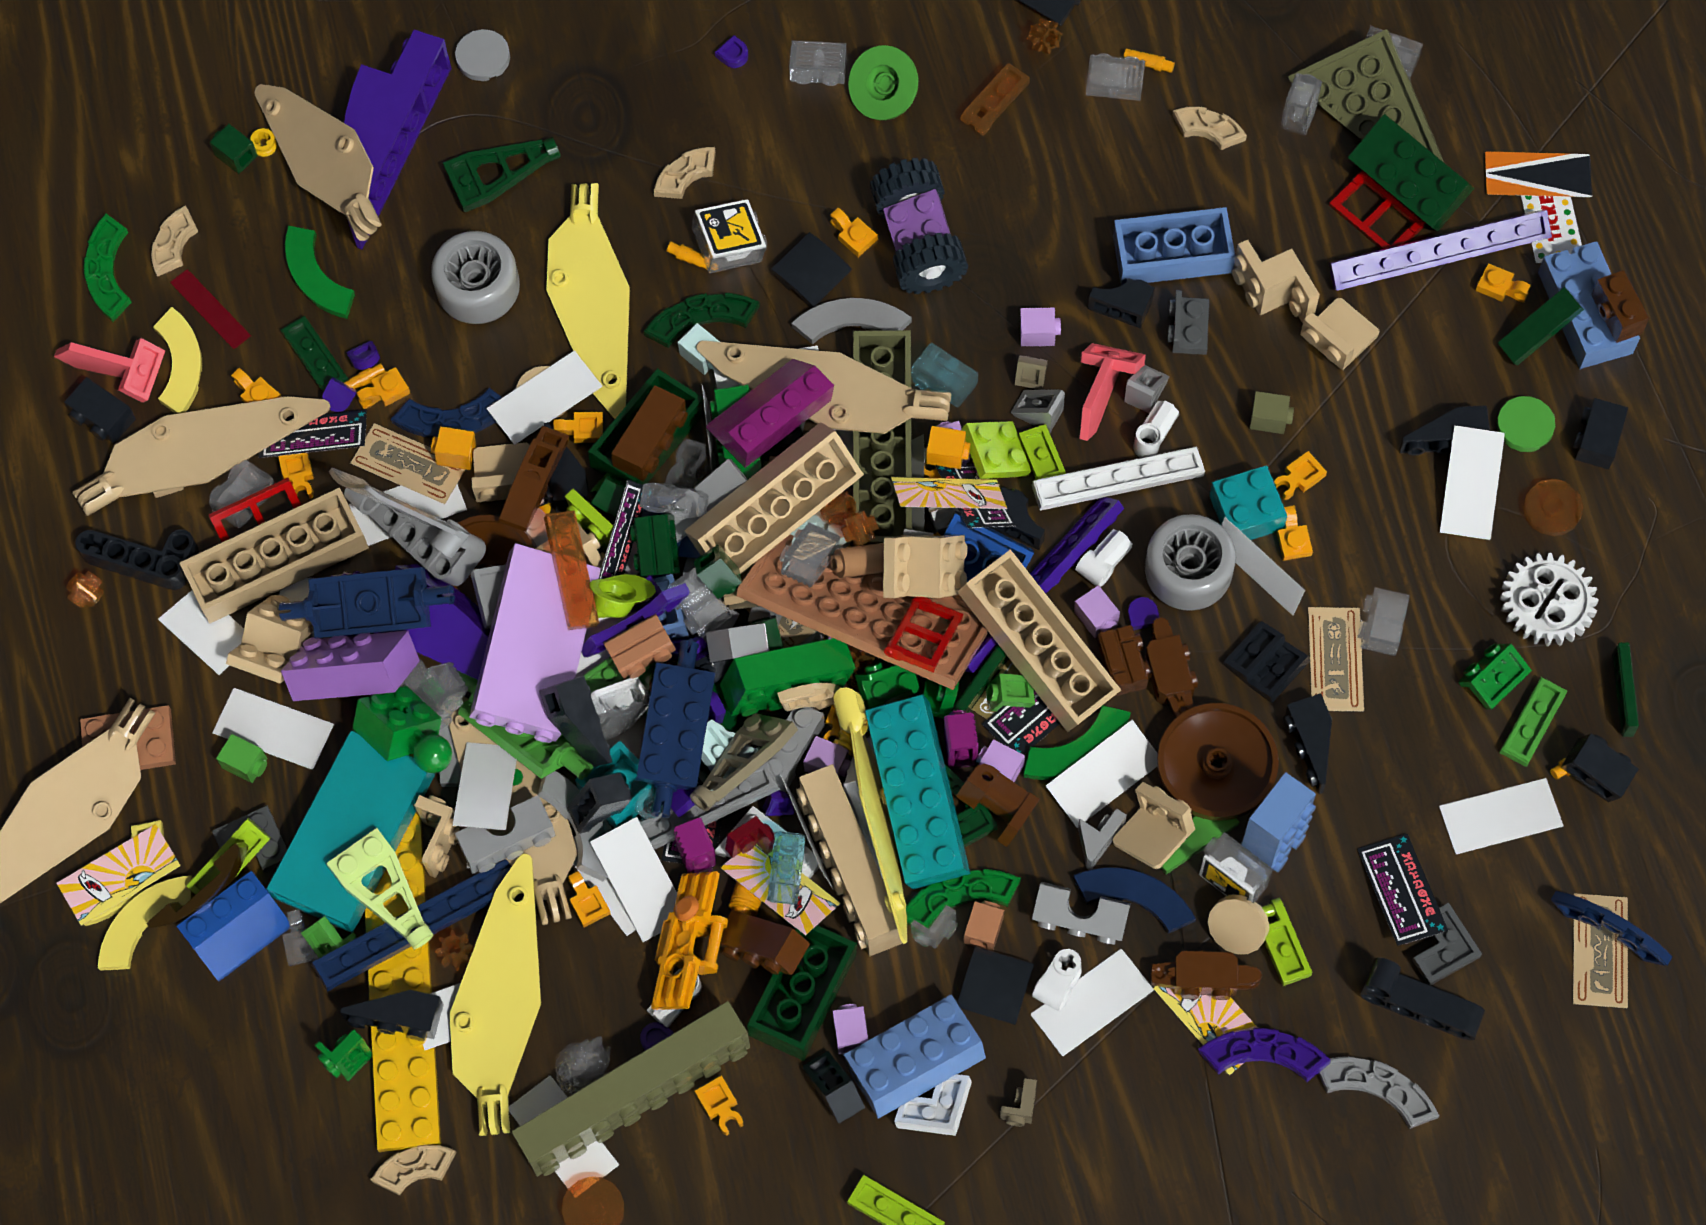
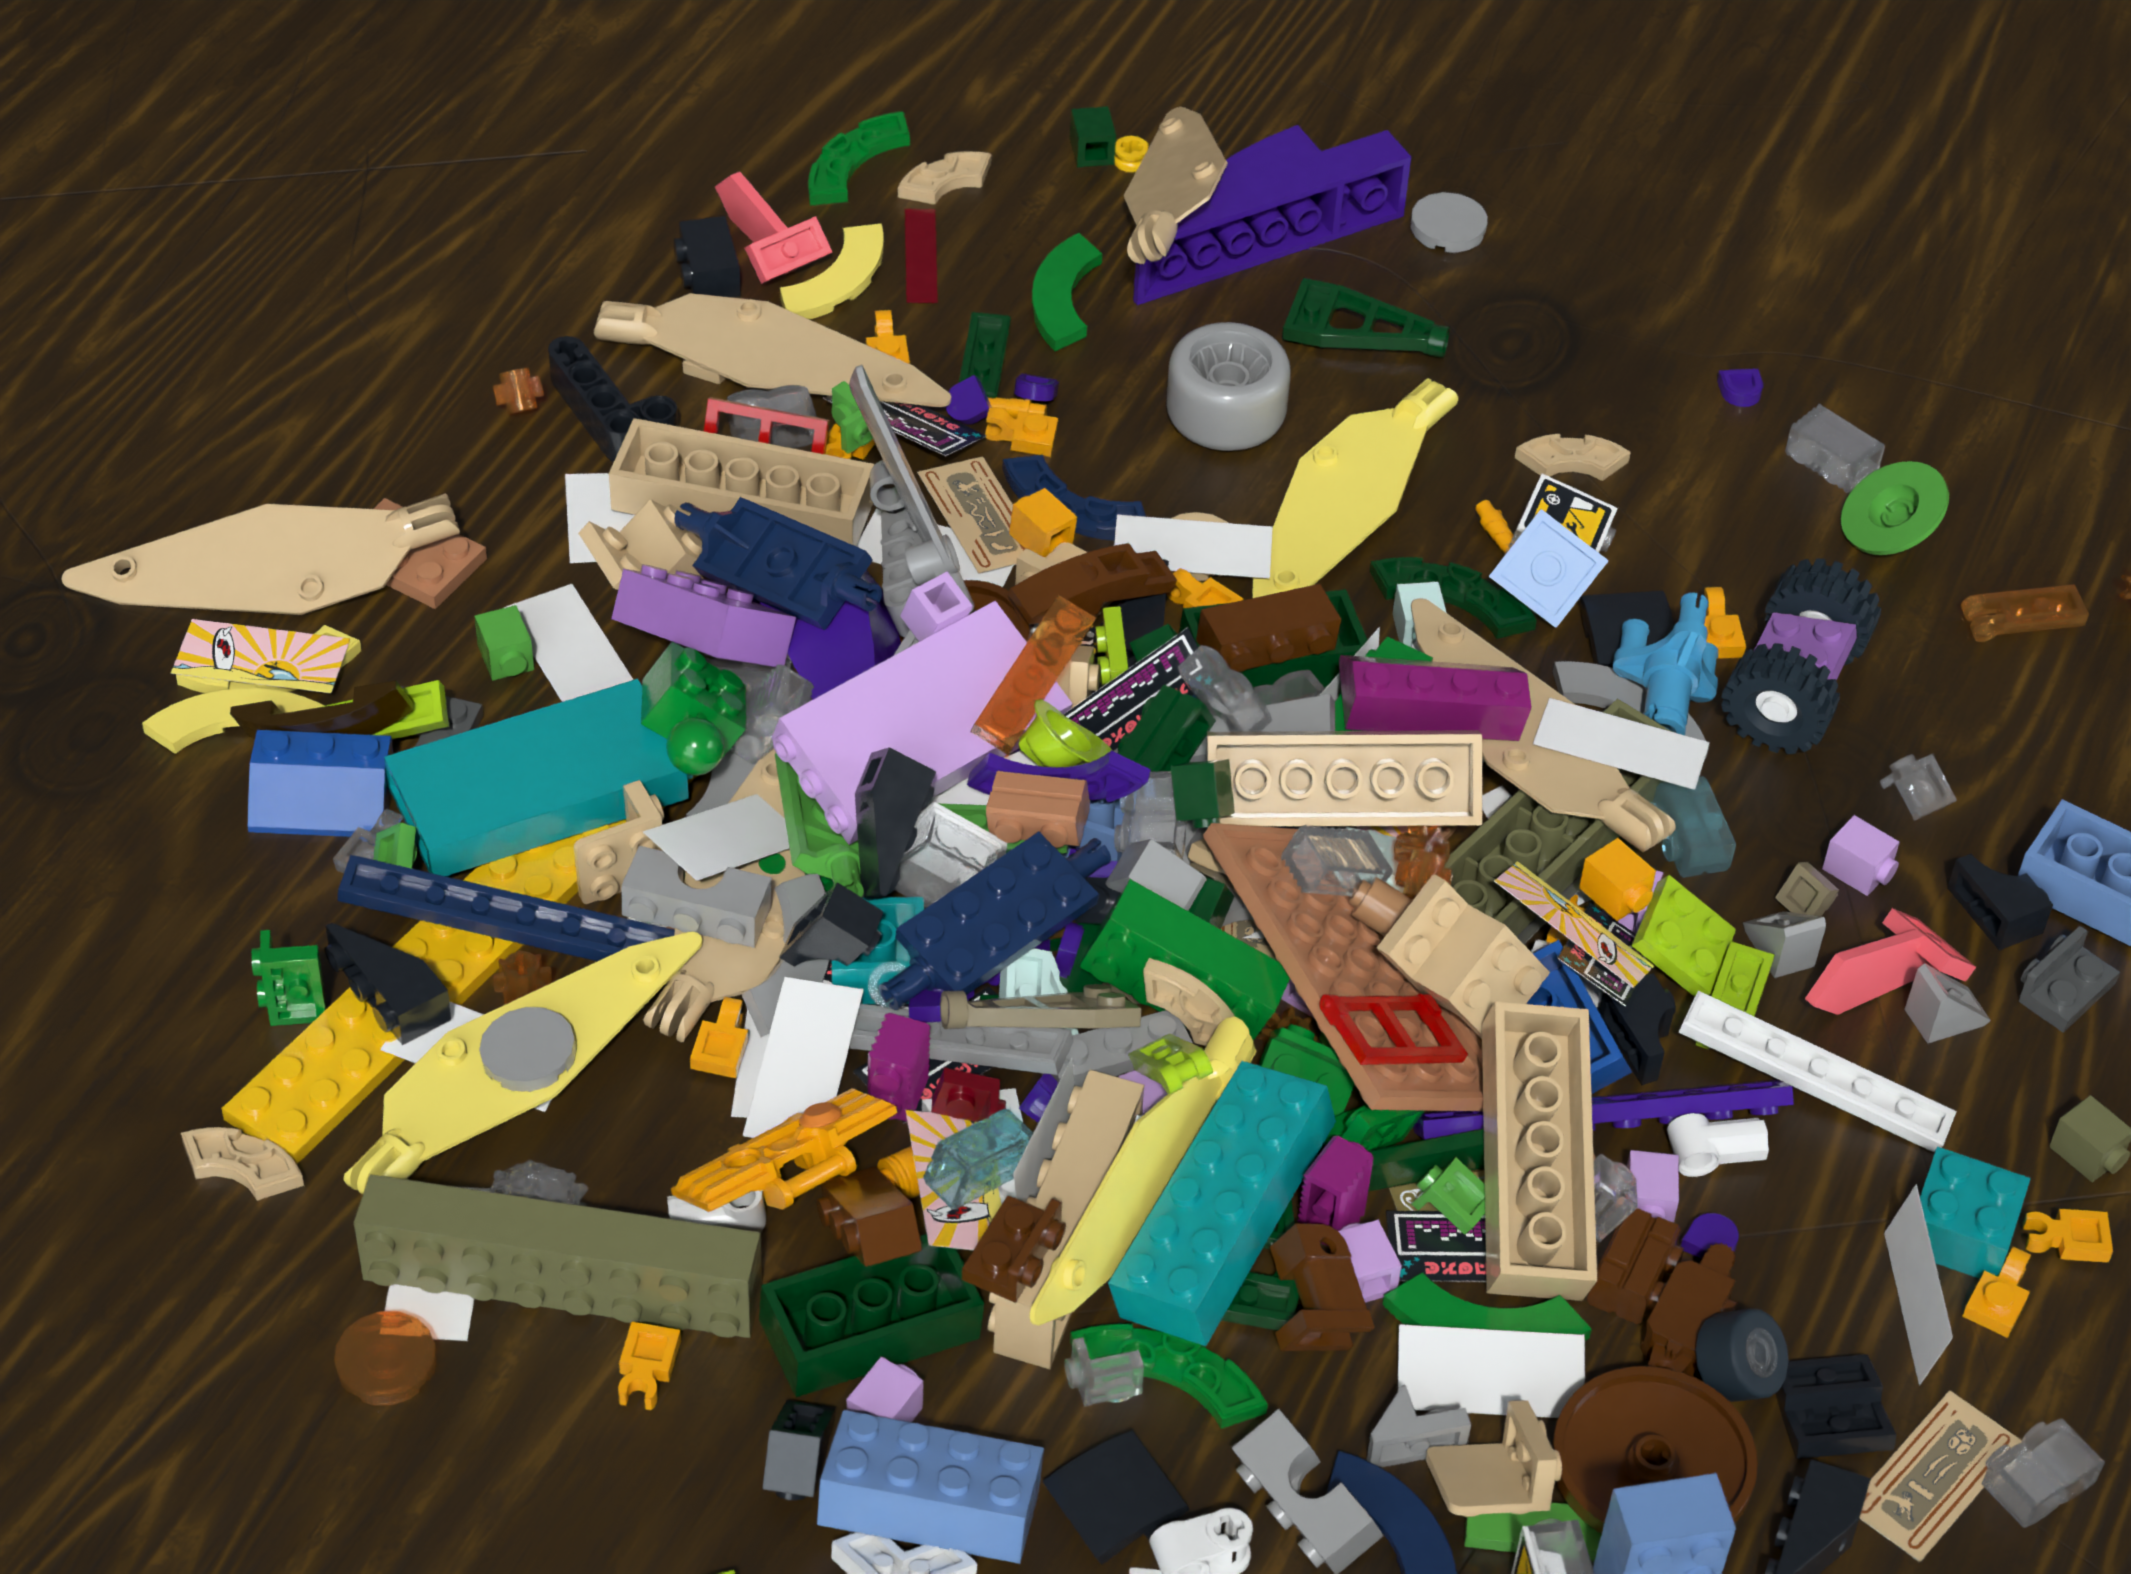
camera: 35 degrees right, 20 degrees down
(294, 458) = (848, 416): none -> bright green bracket
(363, 858) = (509, 797): yellowish green plate -> none
(491, 574) = (935, 606): none -> lavender brick
(504, 990) = (527, 1048): none -> light grey tile
(746, 269) = (1548, 568): none -> light blue plate
(835, 741) = (1171, 1062): none -> lime plate
(856, 908) = (1014, 1247): none -> reddish brown bracket
(859, 289) = (1673, 668): none -> dark azure wheel
(880, 360) = (1621, 743): none -> white sticker
(984, 925) = (1167, 1416): nougat brick -> none
(1031, 258) = (1920, 785): none -> clear bracket
(1091, 633) = (1614, 1195): none -> clear bracket
(1155, 429) = (1911, 1055): white piece -> none
(1196, 543) = (1825, 1213): light grey wheel -> none
(1213, 673) = (1742, 1354): none -> black wheel

